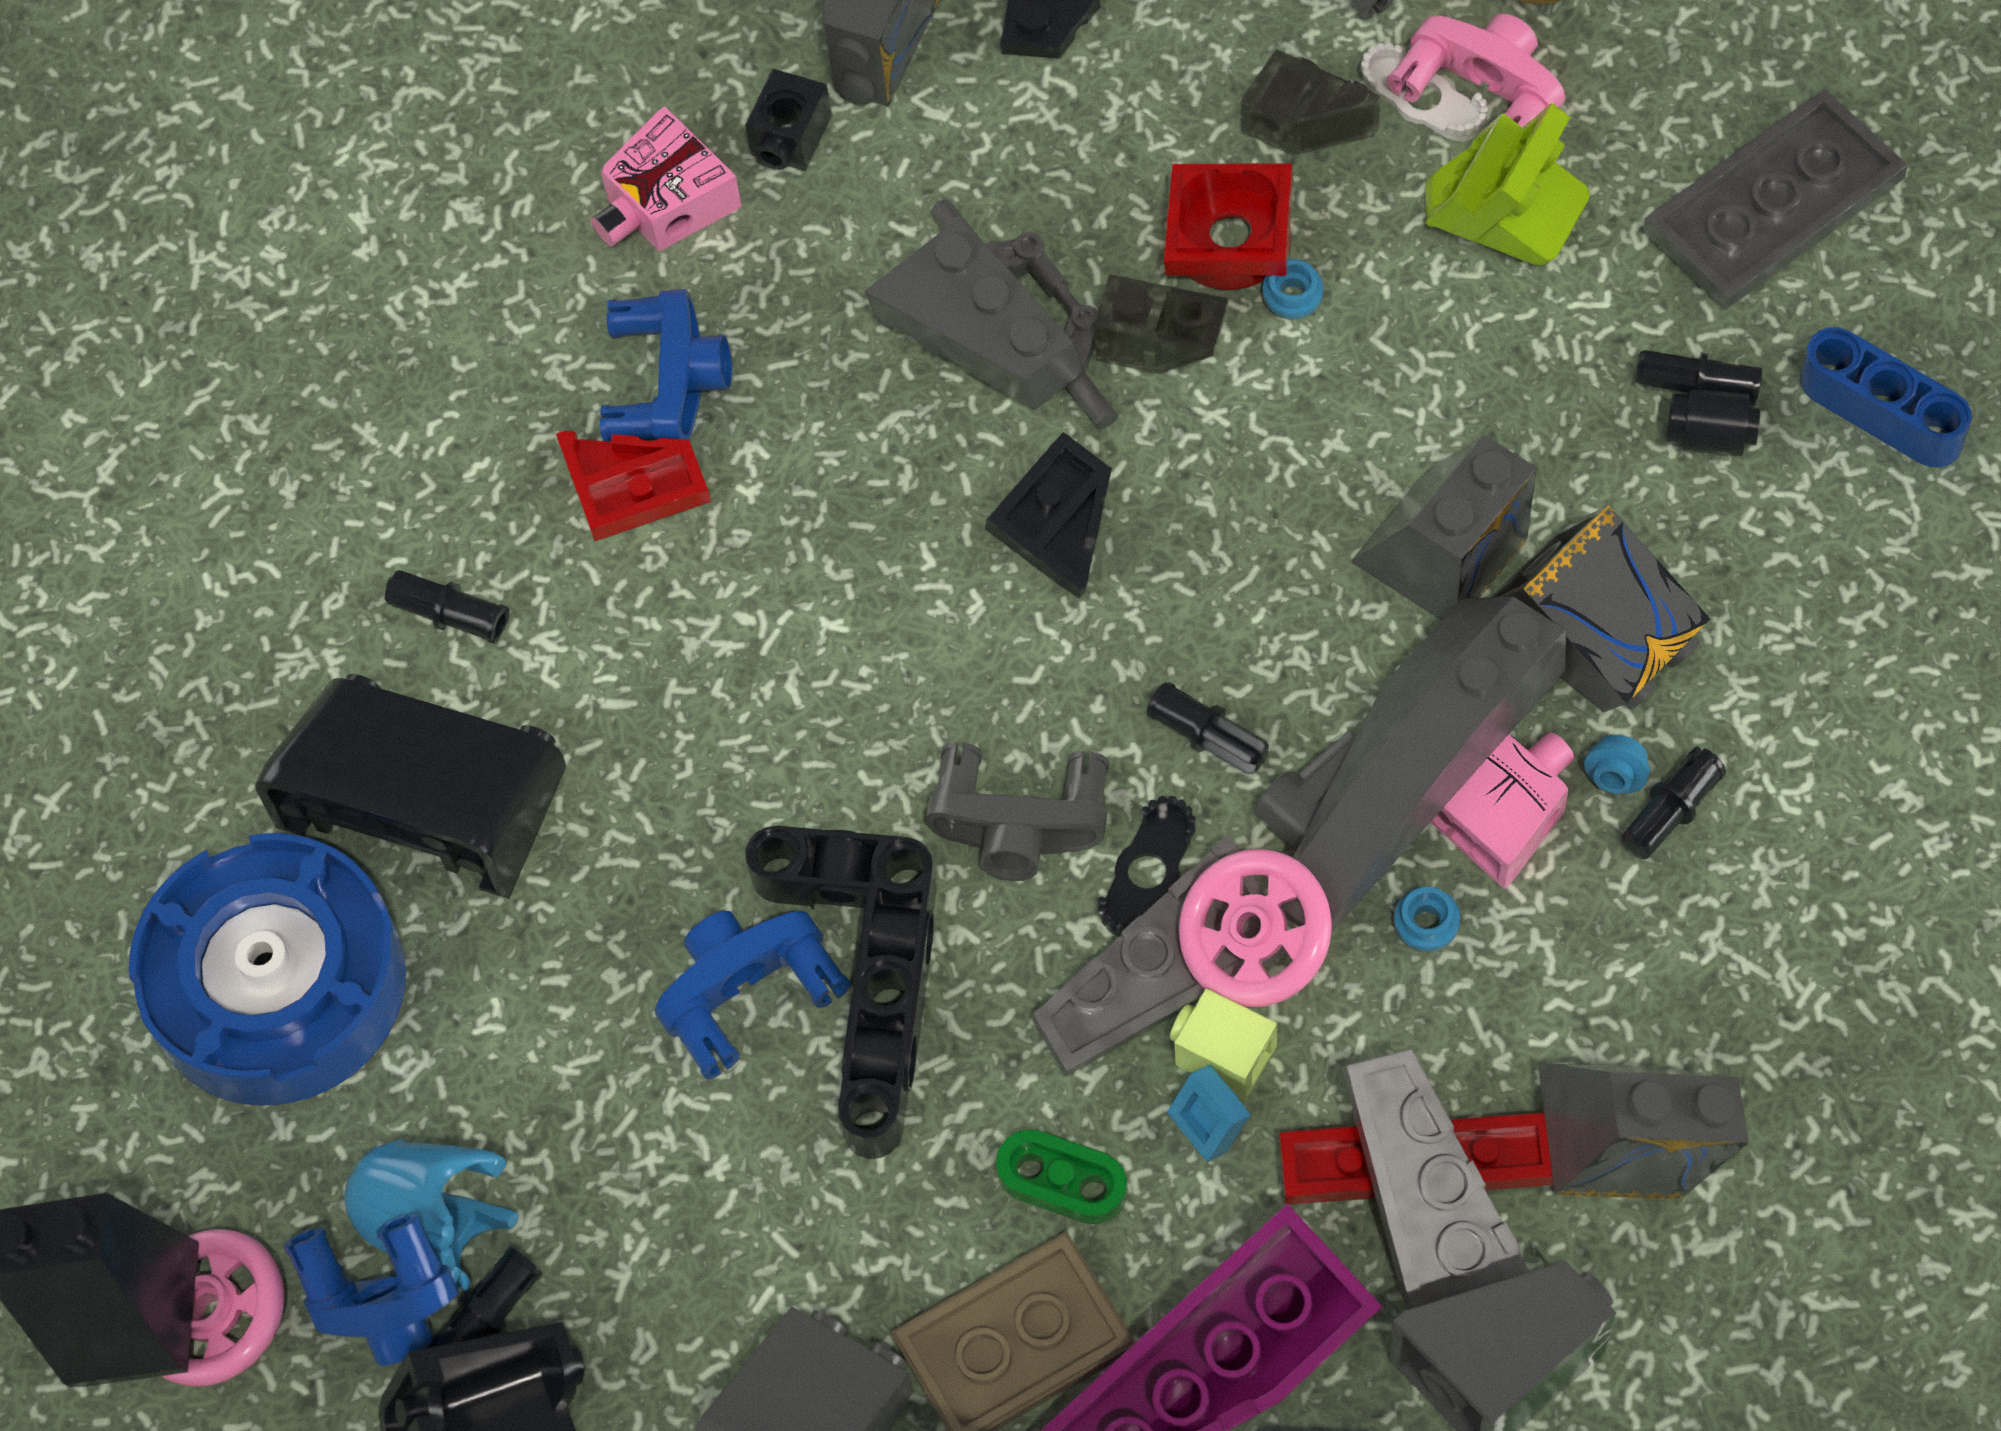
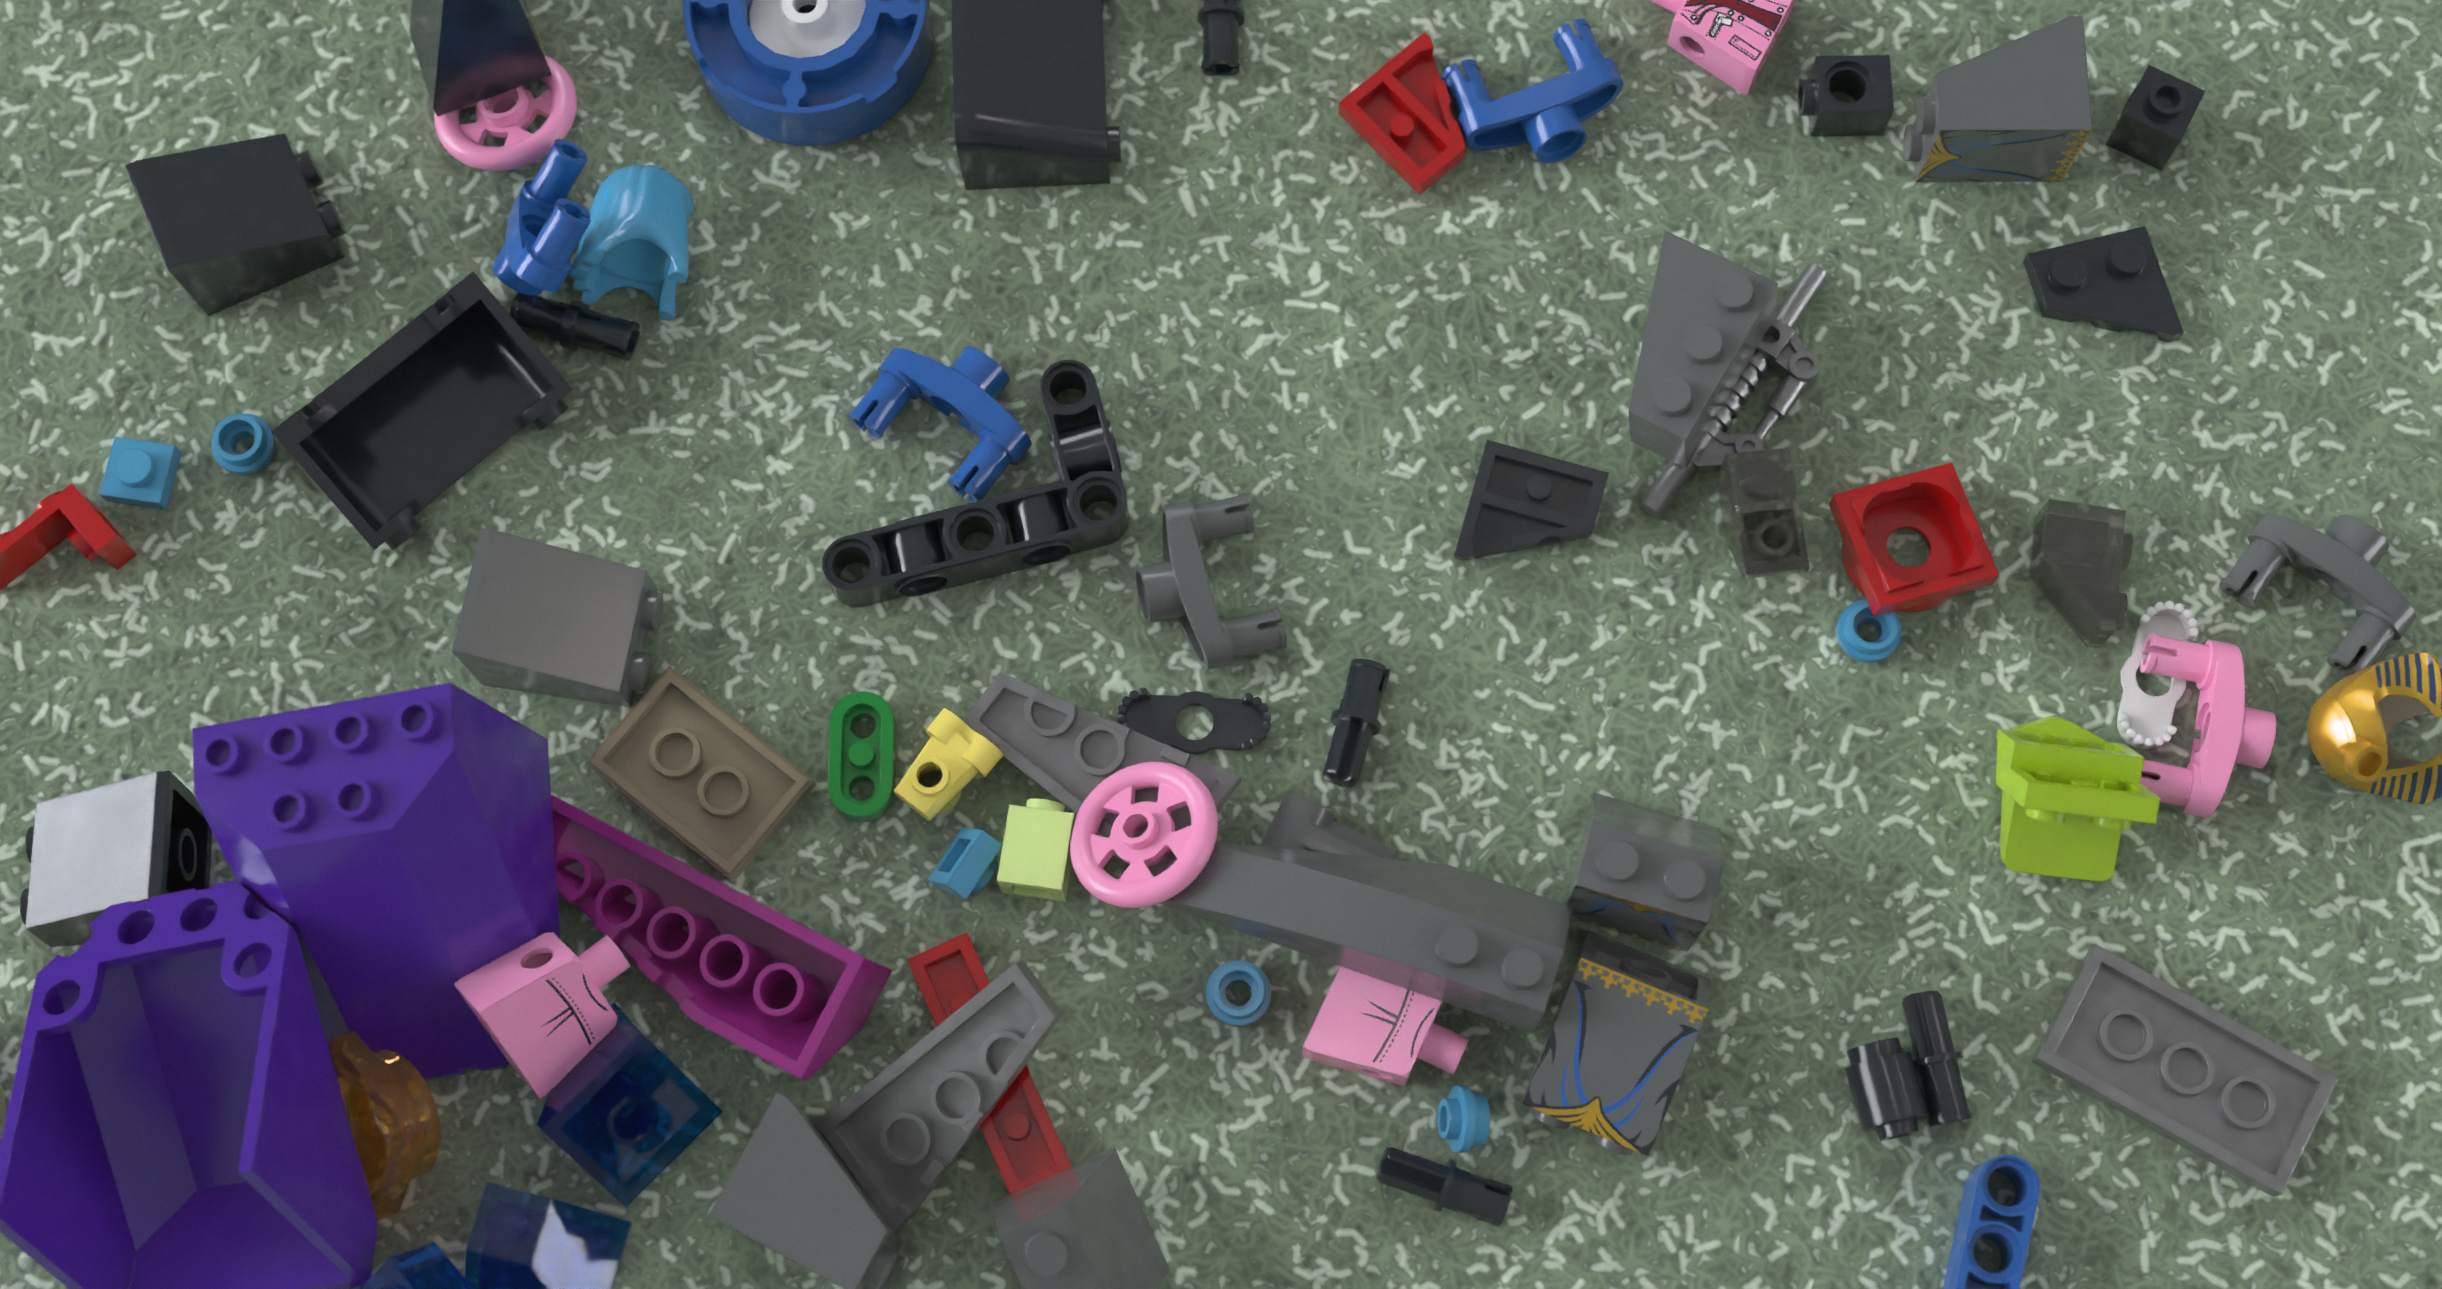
camera: 65 degrees right, 10 degrees up
(1097, 1086) = (955, 752): none -> light yellow plate

